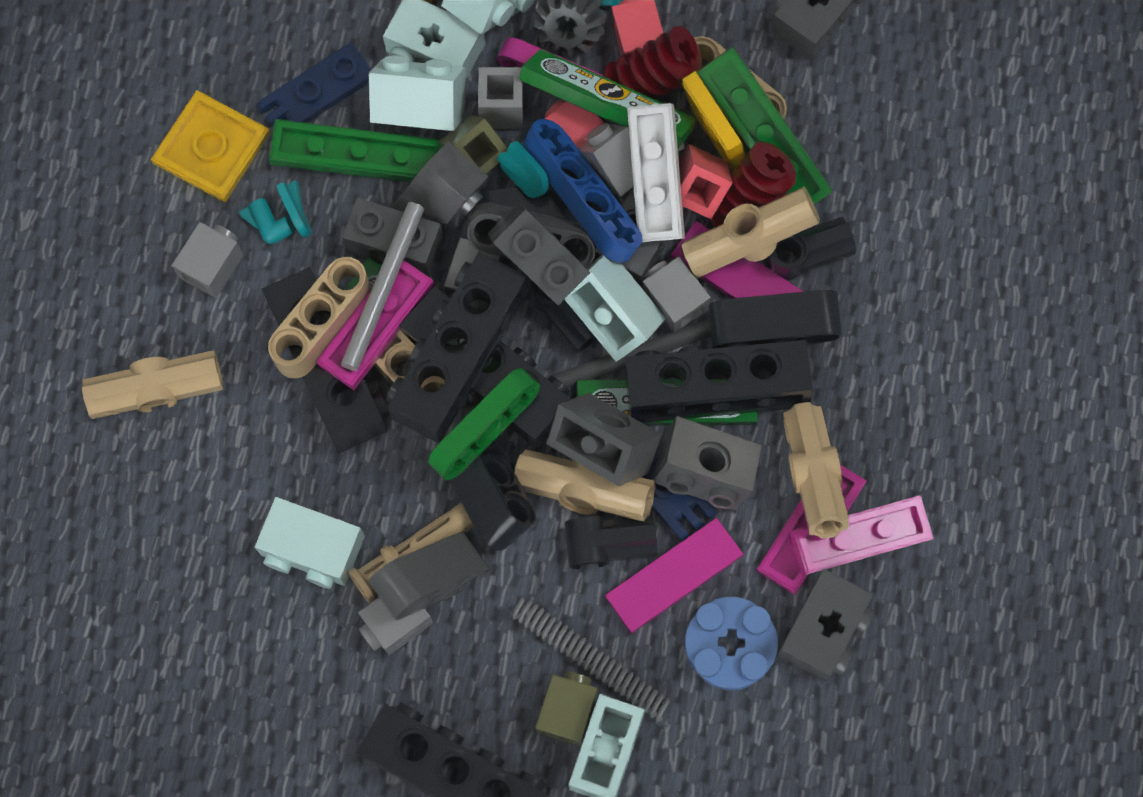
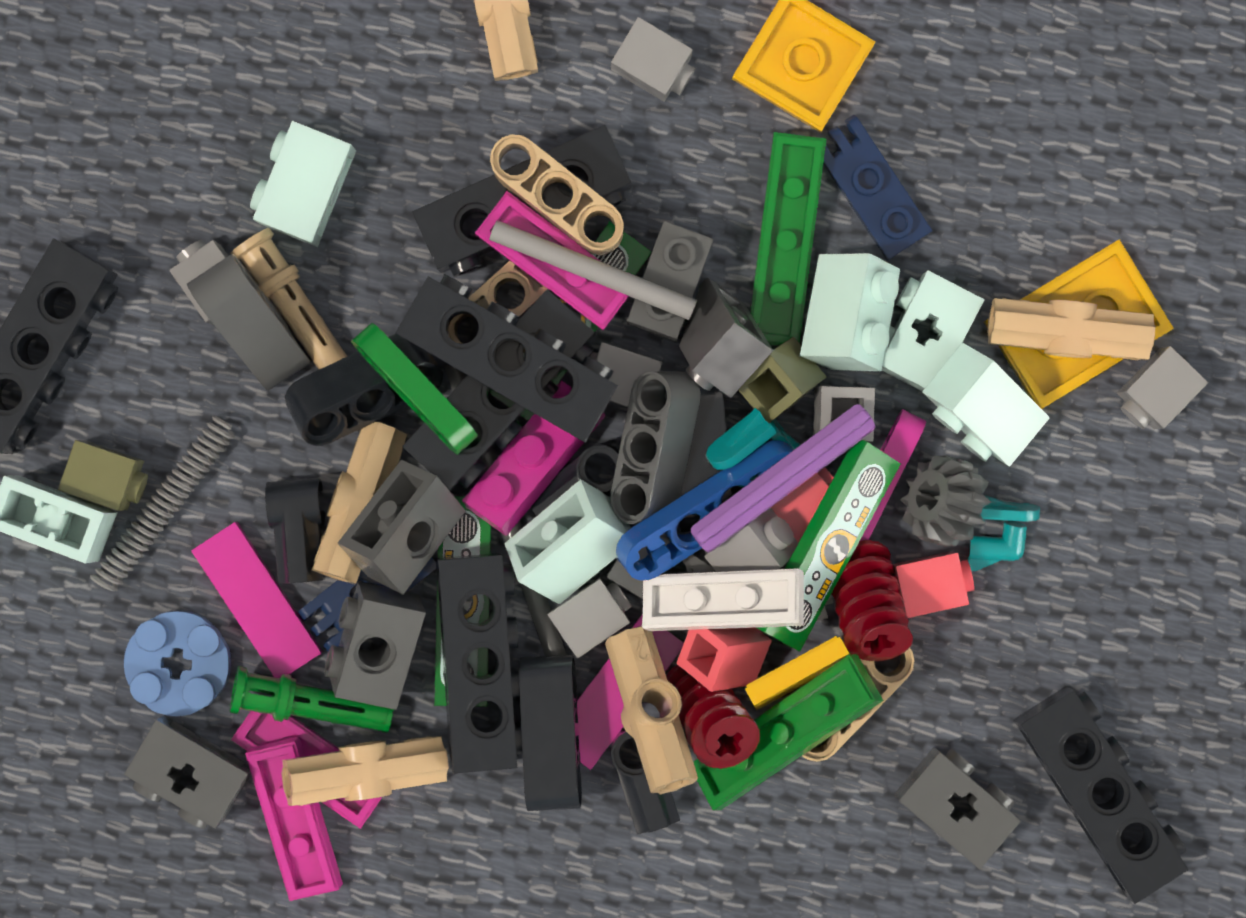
camera: 90 degrees right, 15 degrees up
(274, 231) = (690, 137): teal piece -> none
(538, 253) = (616, 456): dark grey brick -> none
(554, 130) = (782, 478): none -> medium lavender axle
(555, 349) = (523, 471): none -> dark pink plate
(756, 541) = (282, 705): none -> green pin

